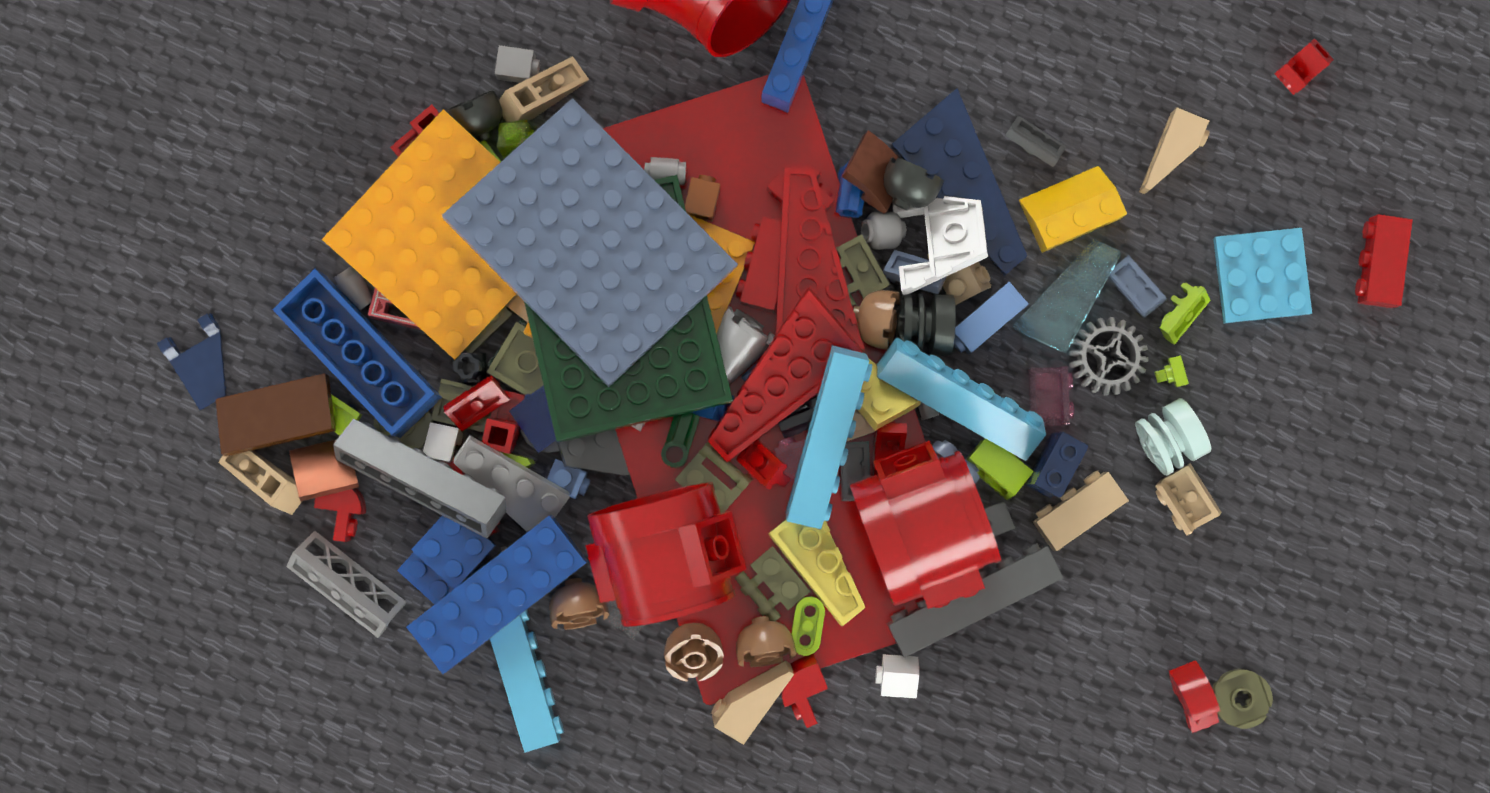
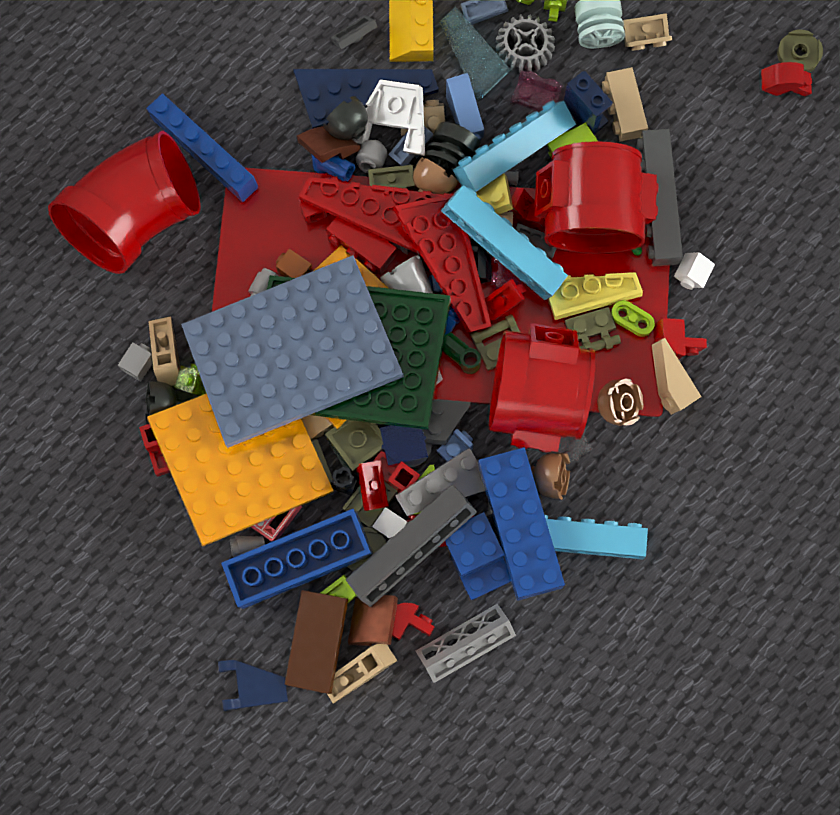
camera: 60 degrees left, 10 degrees down
(764, 643) = (633, 351): medium nougat cylinder -> none

